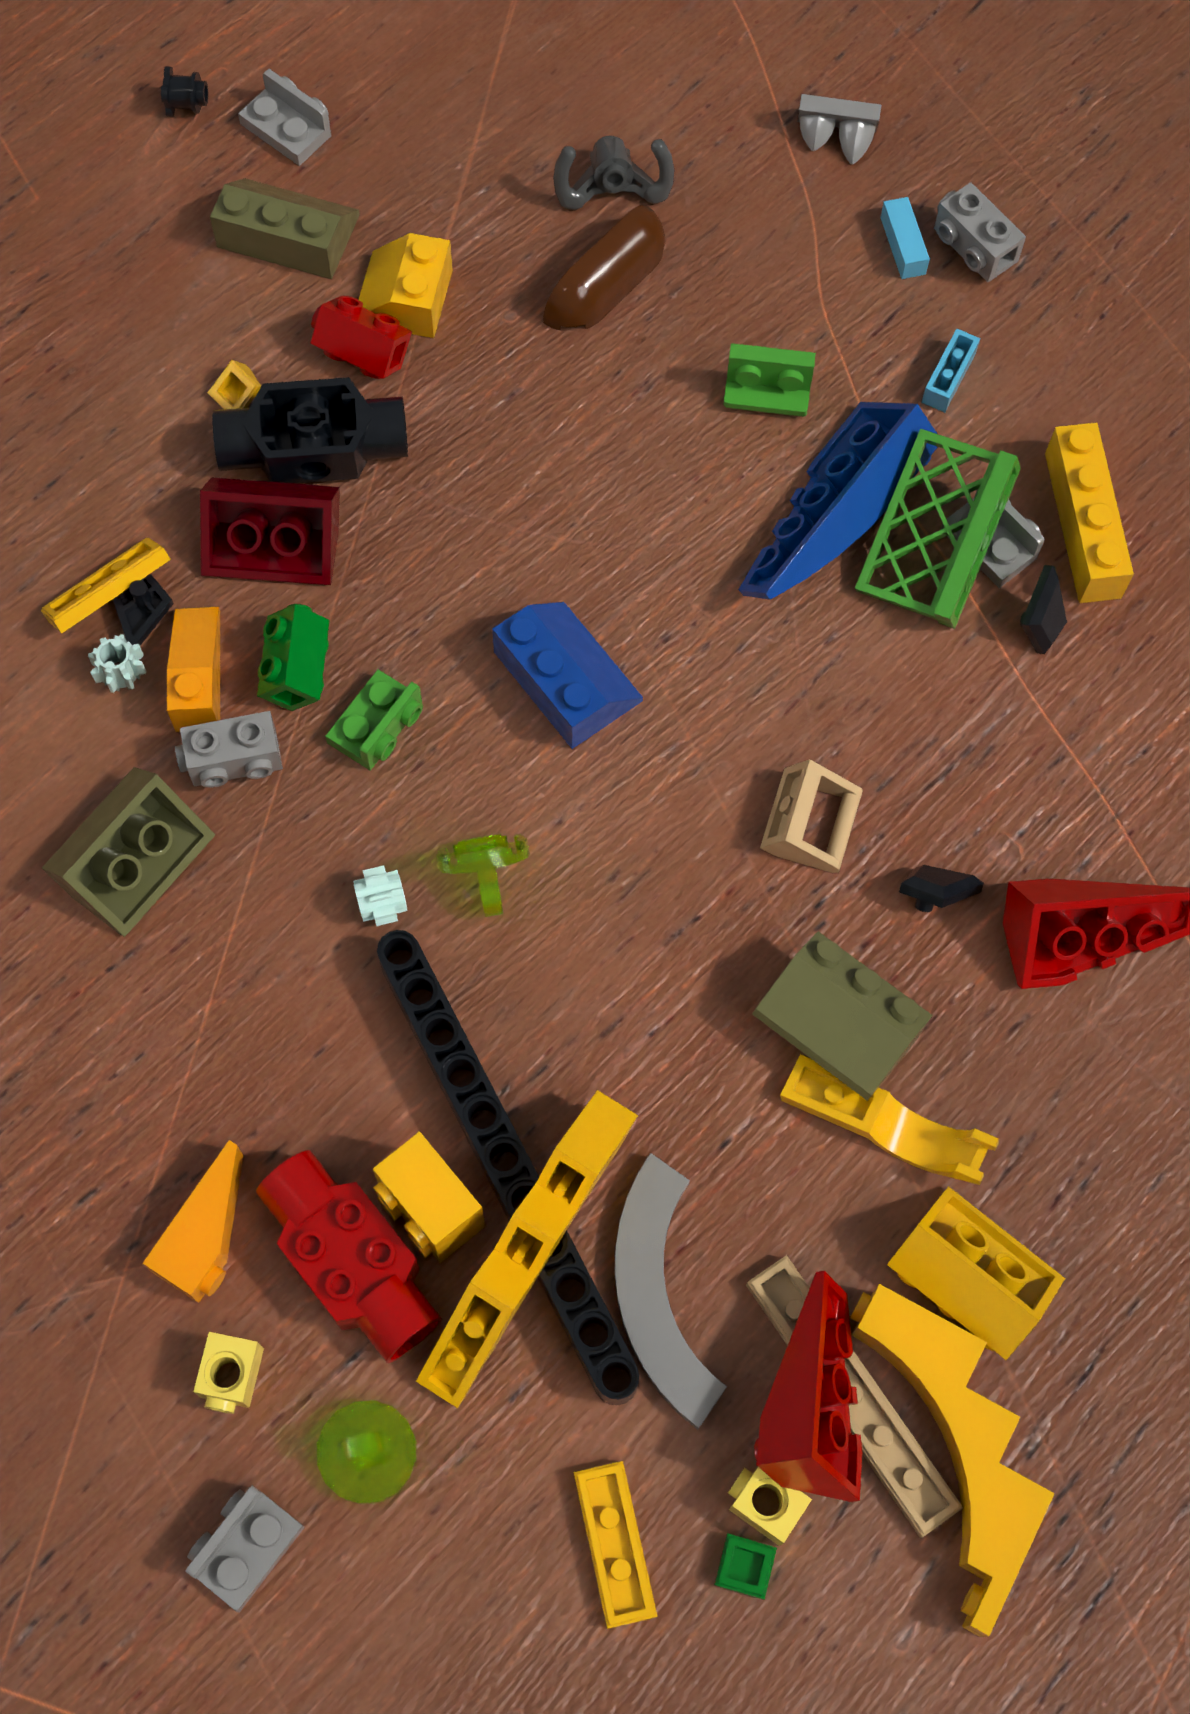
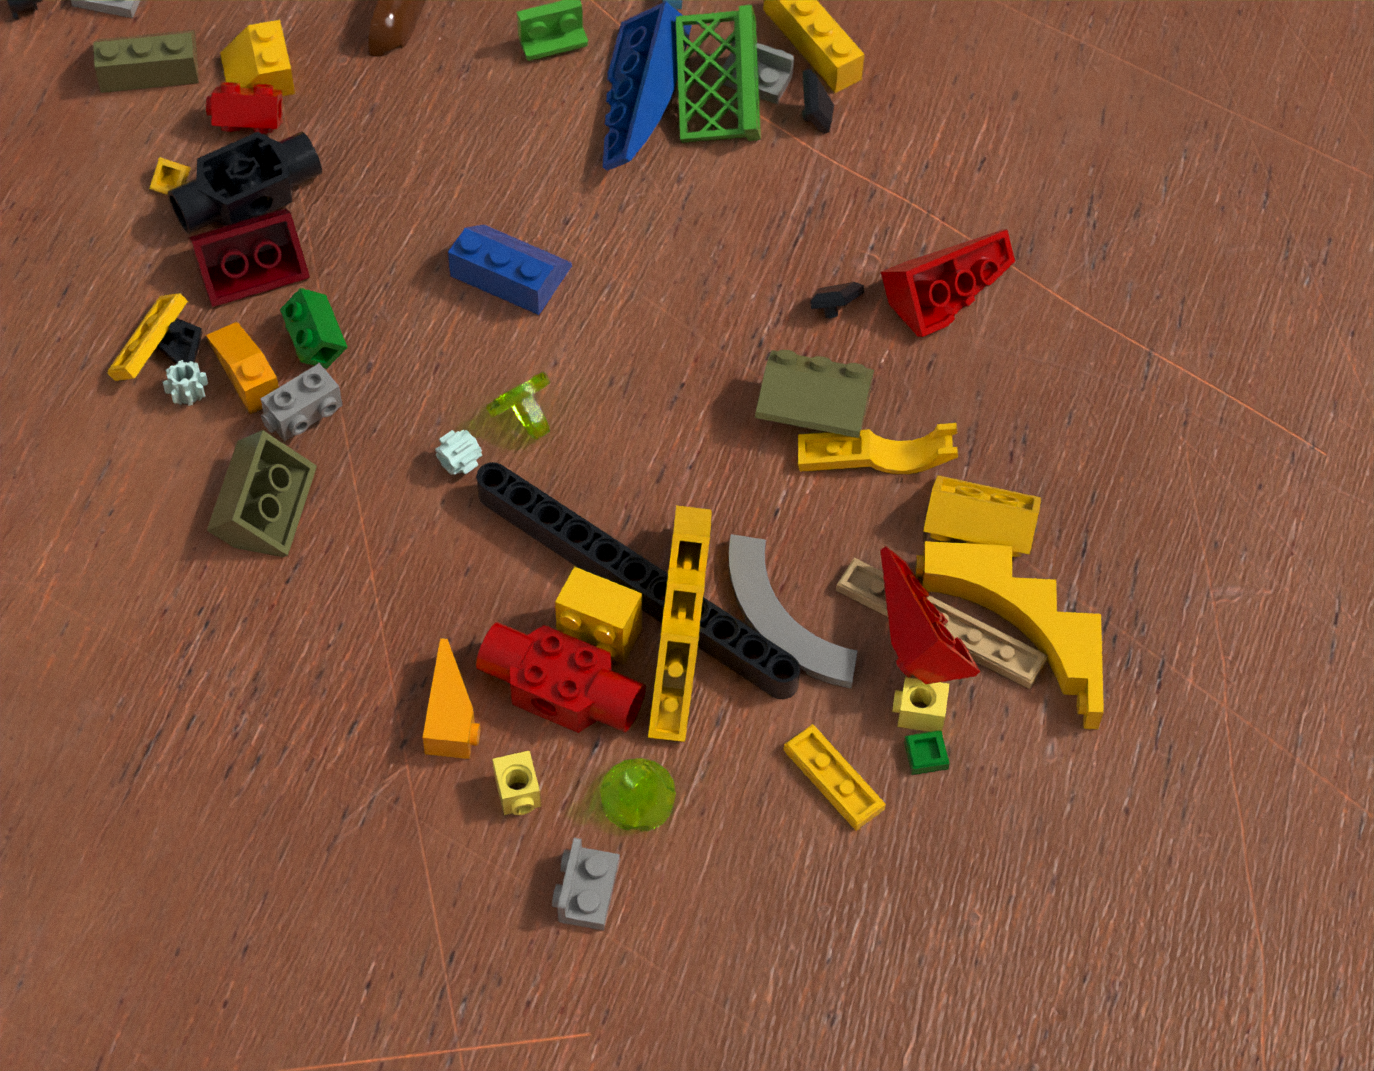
camera: 25 degrees left, 10 degrees down
(375, 719) = (391, 348): bright green bracket -> none
(792, 811) = (713, 289): tan tile -> none

